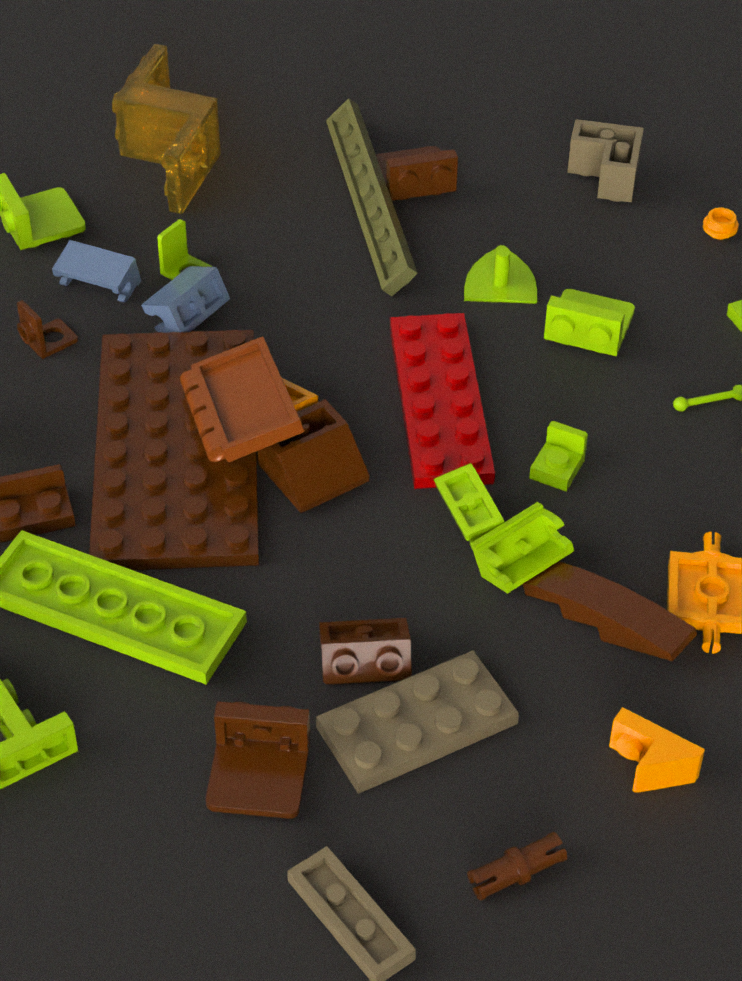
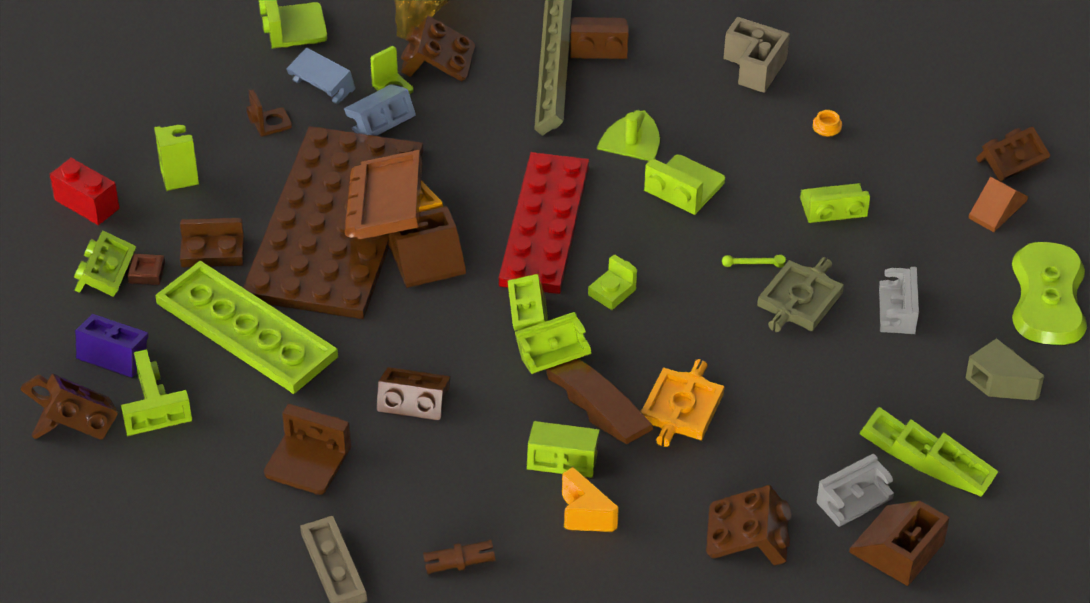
camera: 15 degrees right, 0 degrees up
(228, 210) = (438, 46): none -> reddish brown bracket
(416, 721) = (431, 448): dark tan plate -> none
(590, 684) = (561, 447): none -> lime hinge

